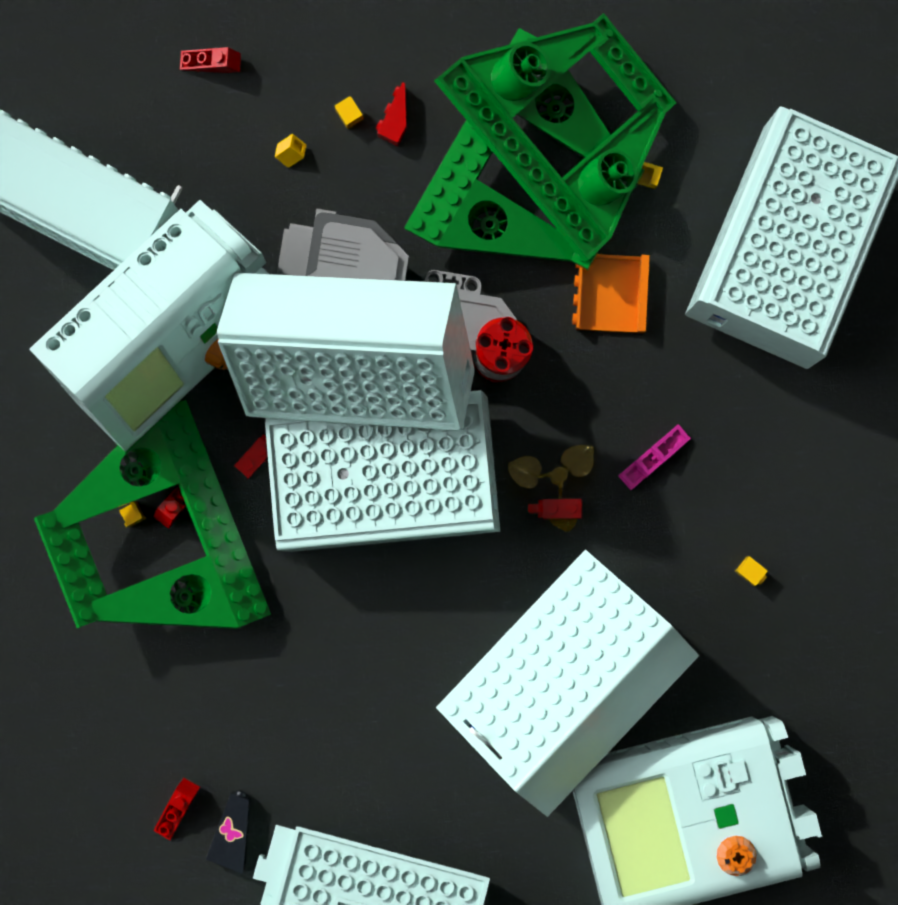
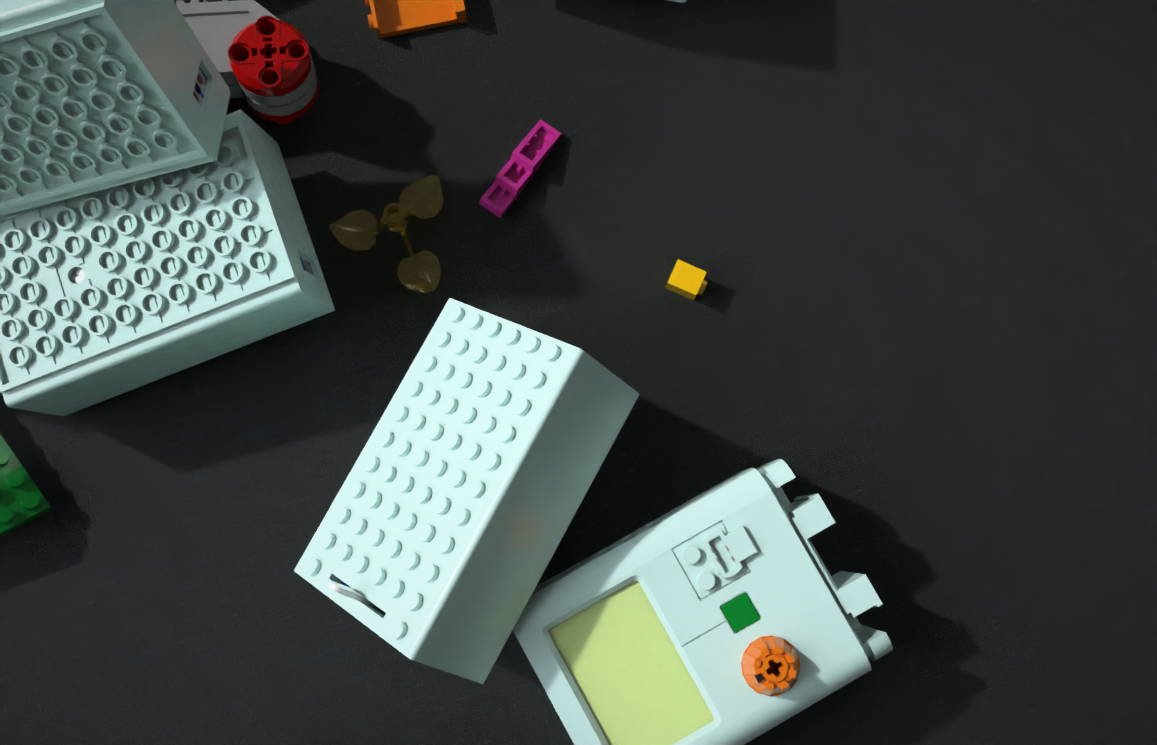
camera: 20 degrees left, 5 degrees down
(557, 509) = (408, 265): red hinge -> none

